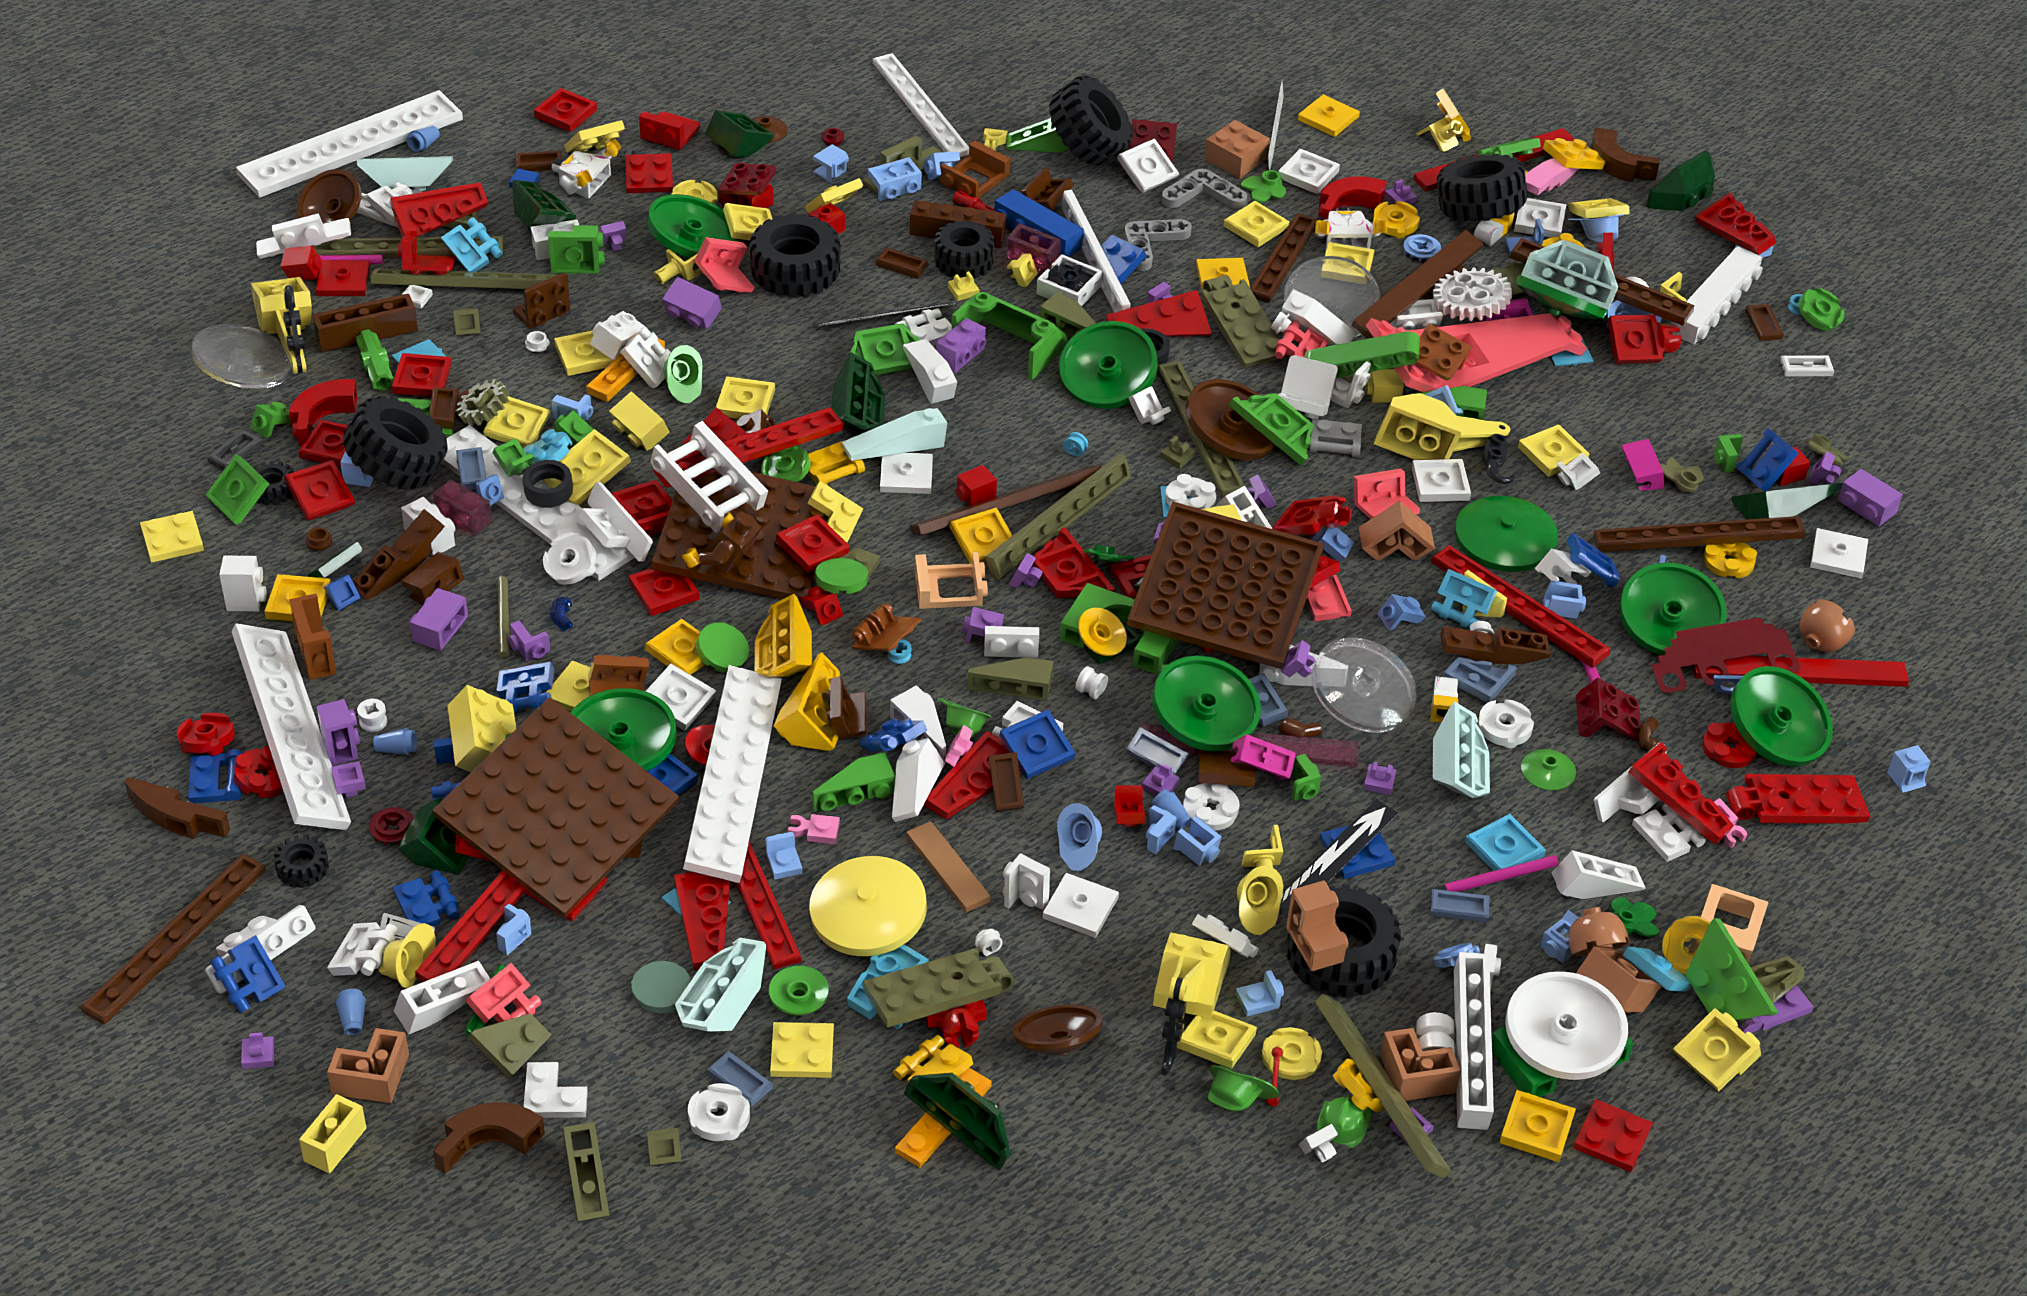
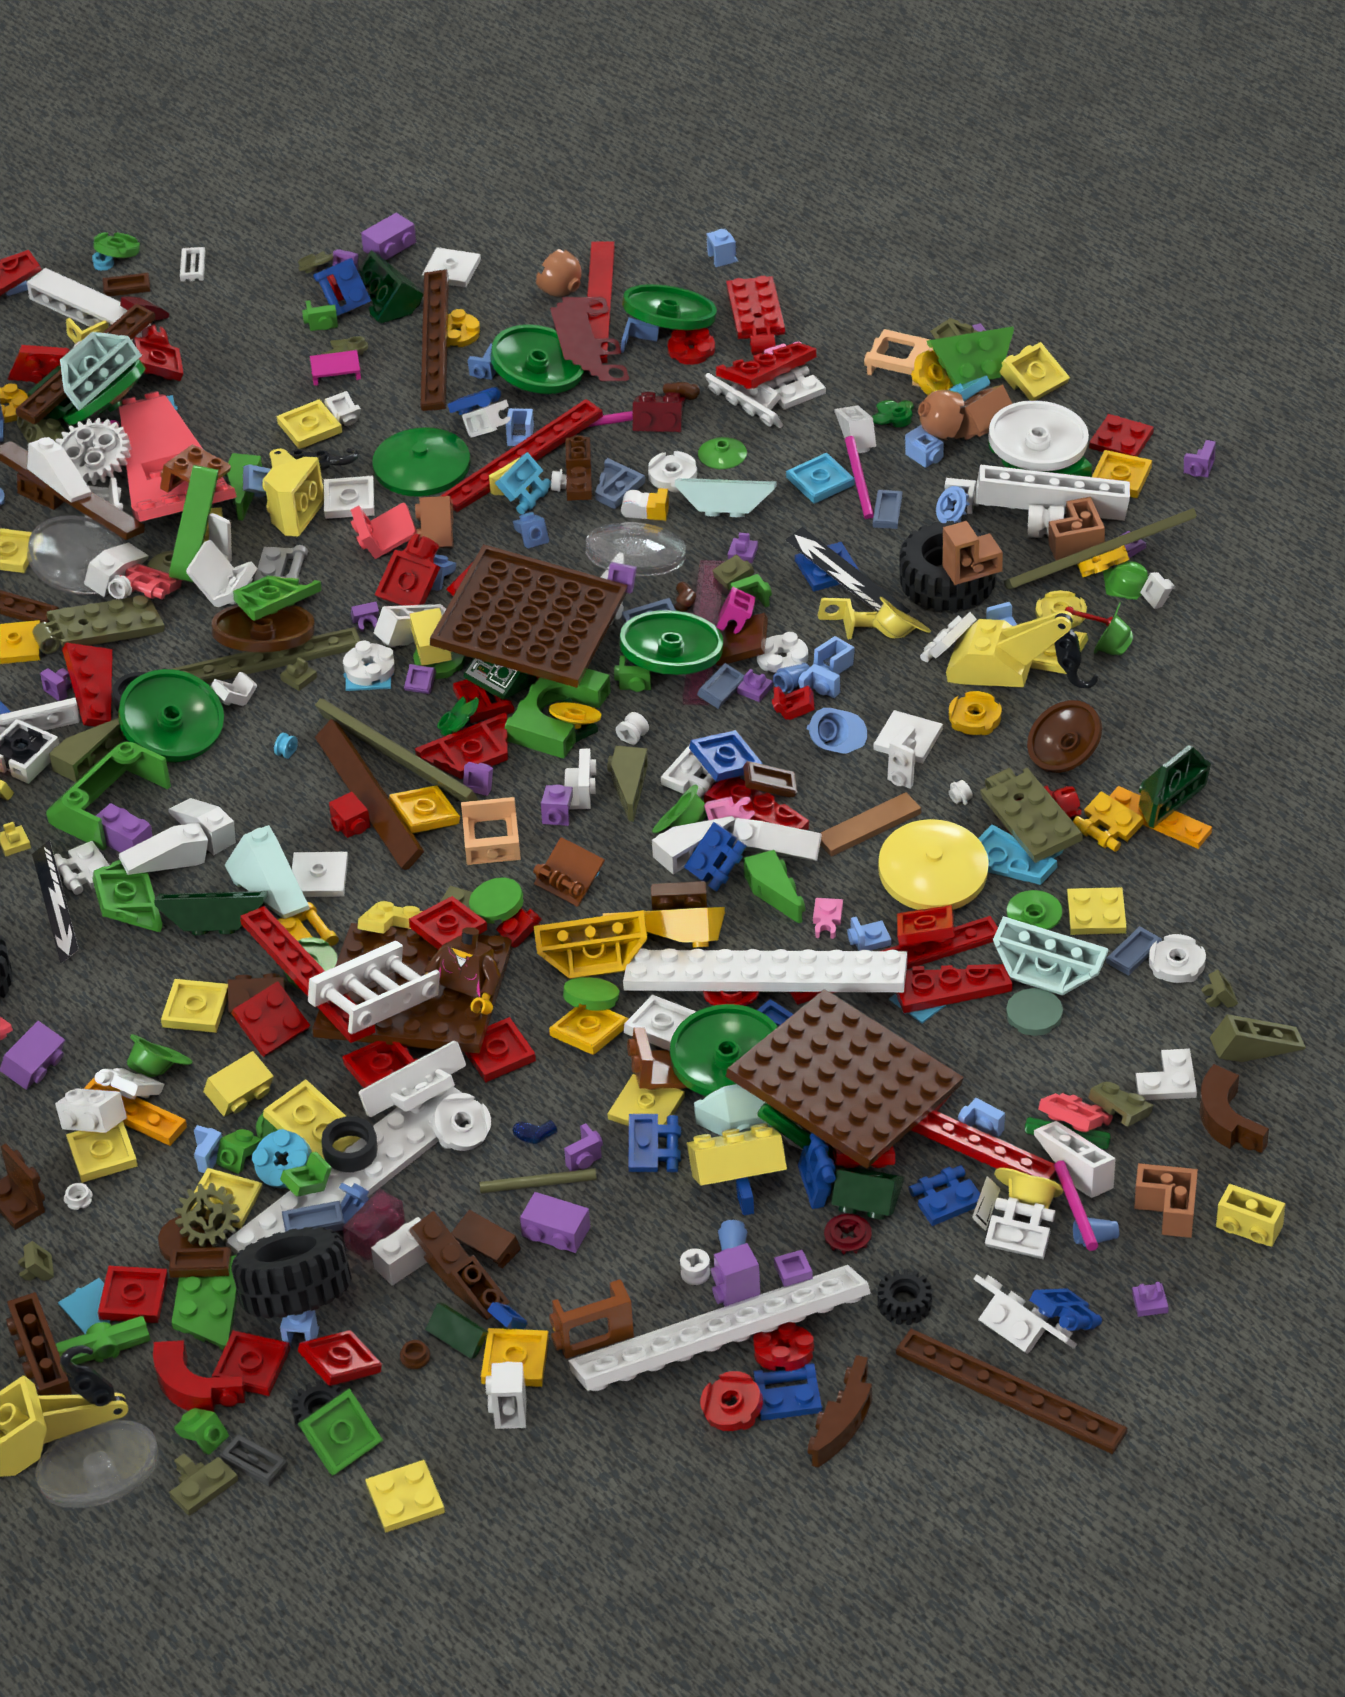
camera: 85 degrees left, 0 degrees up
(220, 422) = (200, 1482): none -> olive hinge
(366, 986) = (1076, 1205): none -> dark pink bar
(781, 895) = (925, 926): none -> red plate
(971, 395) = (213, 820): none -> white slope
(1113, 975) = (965, 721): none -> yellow plate
(1333, 764) = (732, 570): none -> olive bracket
(1429, 266) = (56, 469): none -> white slope
(1567, 1211) = (1202, 462): none -> medium lavender bracket
(1713, 321) = (128, 302): none -> dark red slope

